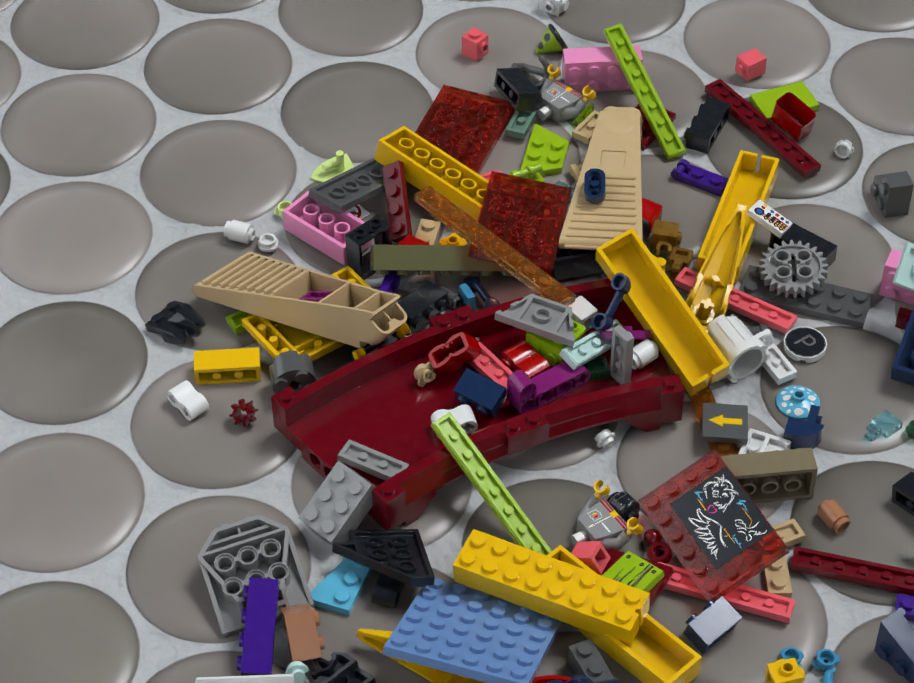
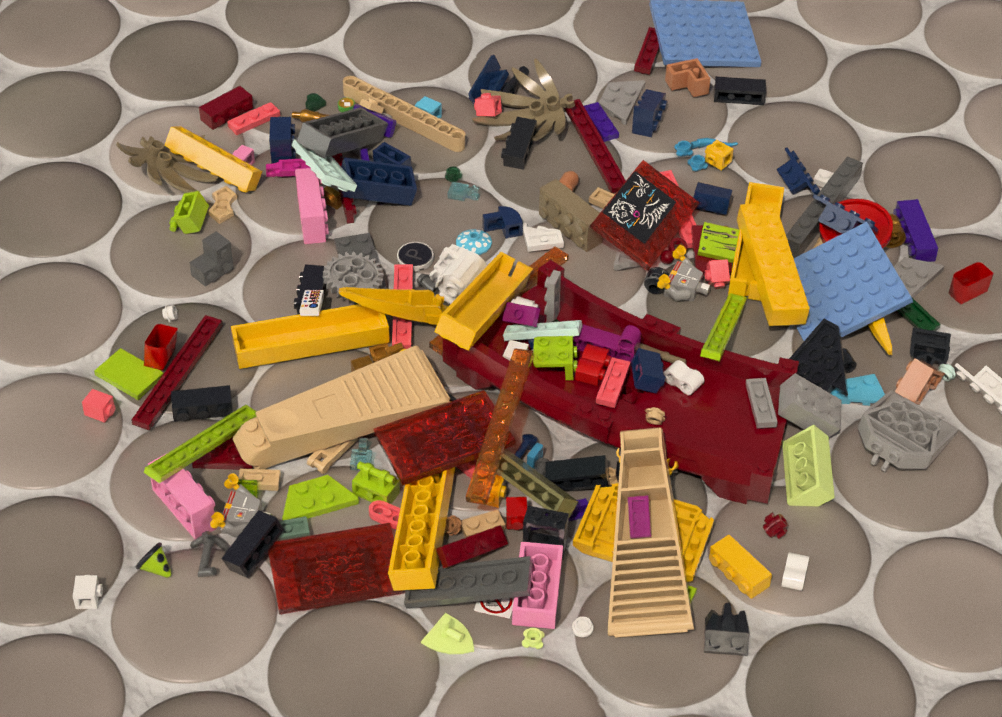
camera: 125 degrees left, 0 degrees up
(239, 231) = (589, 652): white brick -> none
(260, 627) = (944, 394): dark purple brick -> none
(277, 476) = (808, 468): none -> yellowish green slope
(291, 370) = (721, 506): dark grey brick -> none
(458, 350) = (629, 395): red brick -> none
(475, 44) = (200, 616): coral brick -> none
(541, 318) = (559, 352): light grey wing -> none
(594, 186) = (375, 394): dark blue plate -> none
(622, 285) = (523, 327): dark blue bar -> none
(699, 178) = (270, 384): dark purple plate -> none
(725, 423) = (538, 253): dark grey tile -> none

